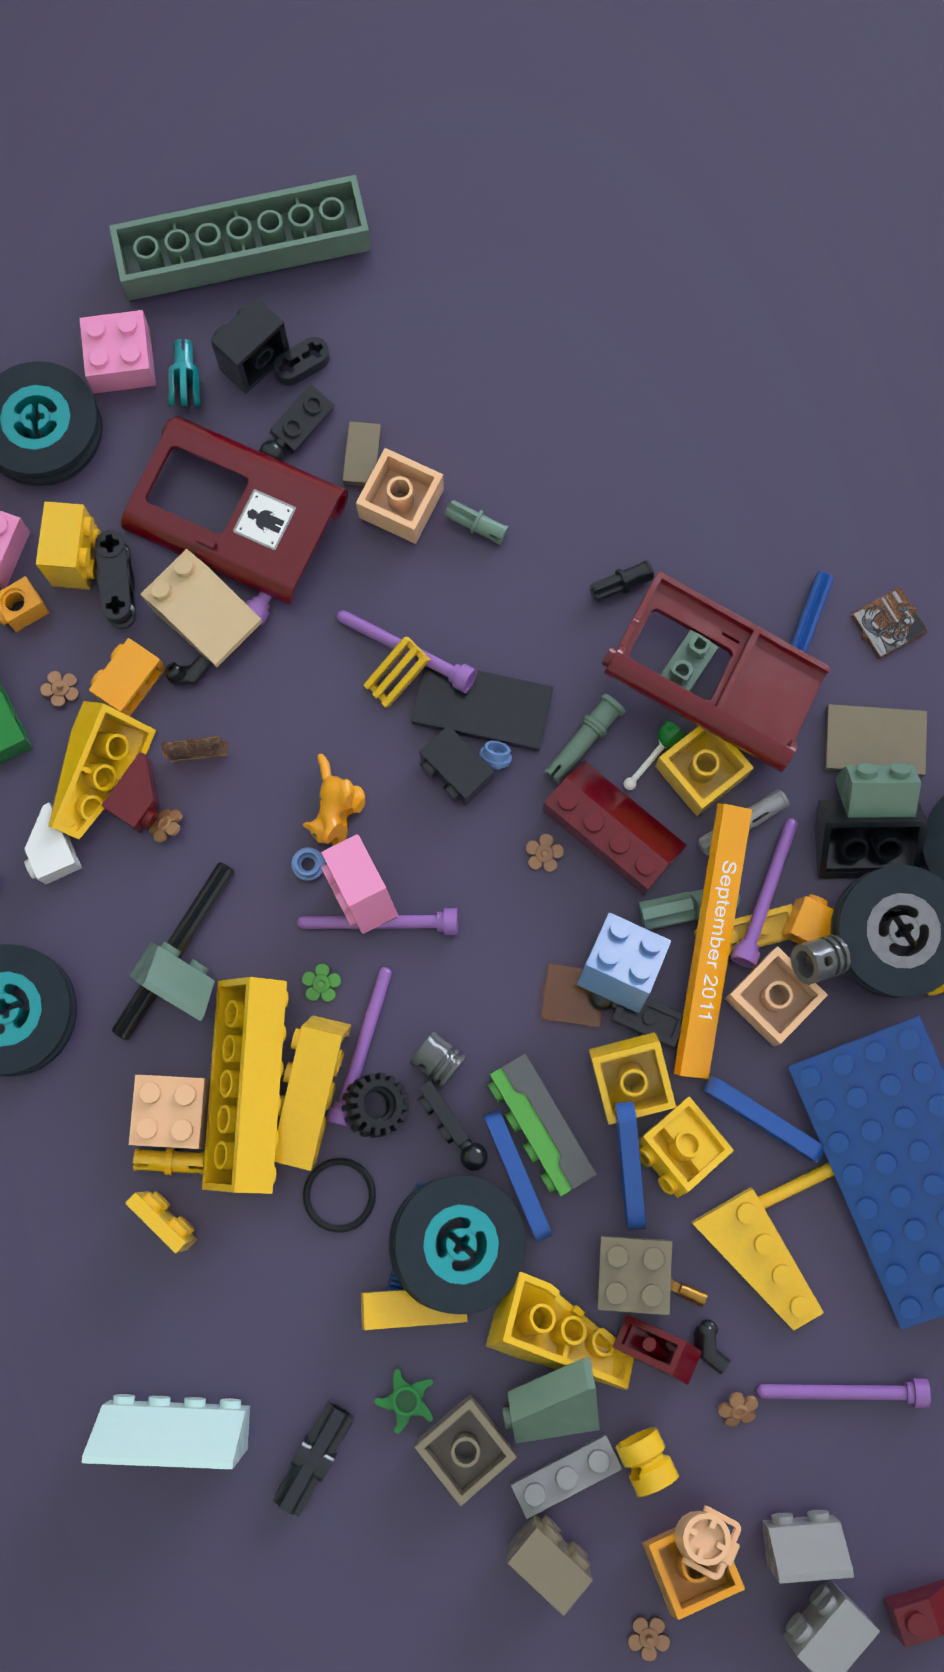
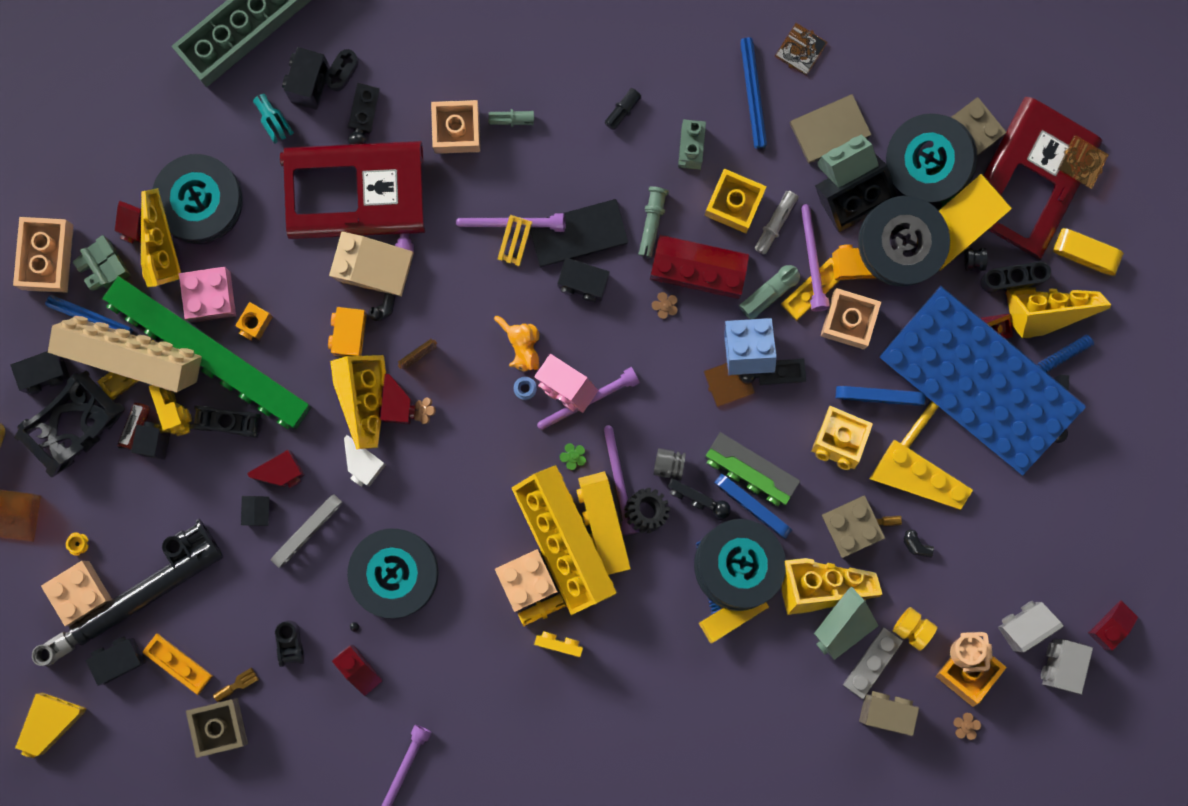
camera: 30 degrees left, 5 degrees up
(60, 688) = (308, 361): medium nougat plant -> none
(67, 545) = (264, 268): yellow brick -> none
(115, 579) = (304, 273): black piece -> none
(117, 351) = (221, 125): bright pink brick -> none
(169, 1433) = (632, 760): light aqua slope -> none
(174, 979) = (485, 501): sand green slope -> none
(180, 940) = (472, 484): black axle -> none
(313, 1459) = (722, 732): black piece -> none
(361, 452) = (414, 111): dark tan tile -> none
(371, 1200) = (659, 596): black tyre -> none
(406, 1400) = (757, 671): green animal -> none
(465, 1449) = (807, 678): dark tan brick -> none
(496, 754) = (603, 259): medium blue plate -> none
(630, 1165) = (817, 464): blue beam -> none
(635, 1073) = (791, 412): yellow brick -> none
(657, 1349) = (888, 562): dark red slope -> none
(667, 737) = (703, 193): hinge -> none
(712, 941) = (796, 305): light orange tile -> none
(738, 1409) = (952, 571): medium nougat plant -> none
(760, 692) = (746, 136): dark red piece -> none
(824, 959) = (868, 280): dark grey piece -> none
(913, 1392) = (1047, 508): medium lavender piece -> none

